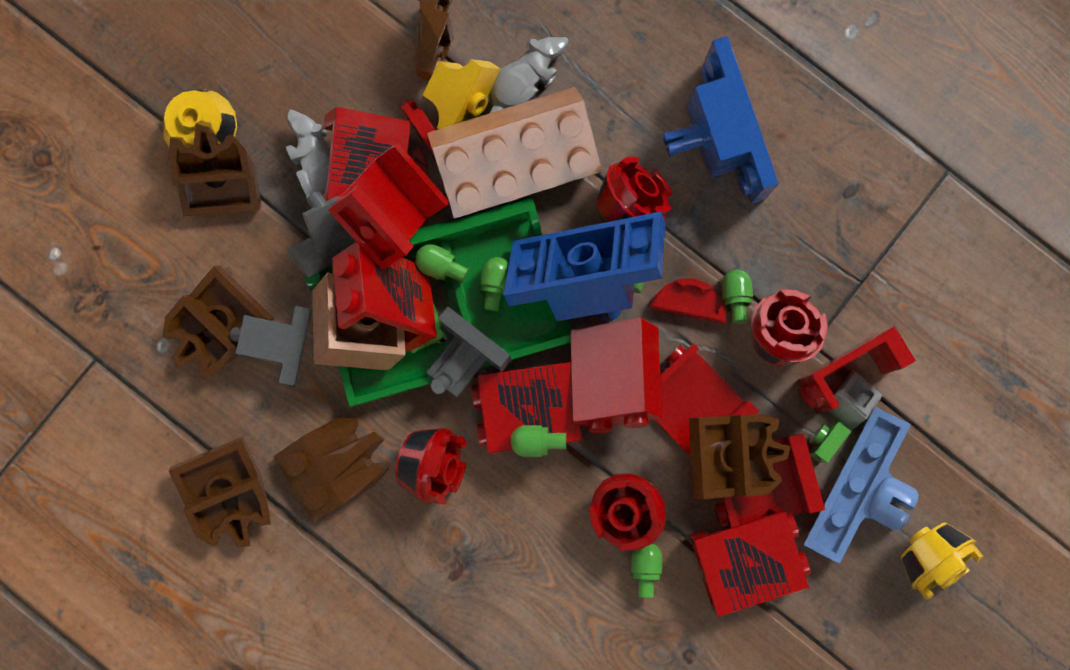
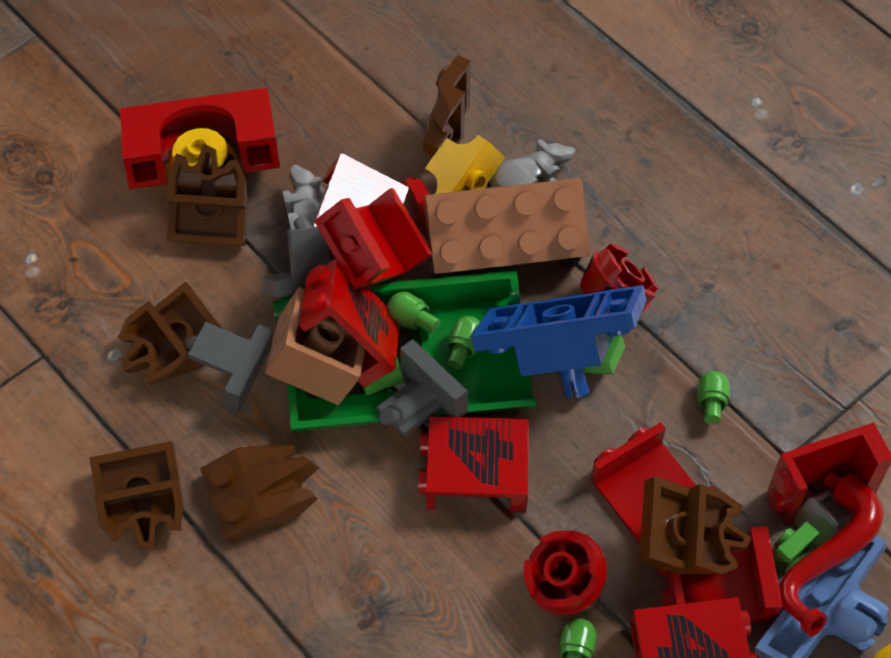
camera: 10 degrees right, 25 degrees down
(138, 91) = (153, 129): none -> red arch
(431, 464) = (363, 494): red cone -> none
(536, 441) = (479, 482): bright green cylinder -> none
(616, 375) = (574, 436): red brick -> none
(690, 299) = (664, 395): red tile -> none
(726, 126) = (720, 238): blue brick -> none
(787, 328) = (760, 426): red cone -> none
(892, 414) = (862, 528): none -> red animal

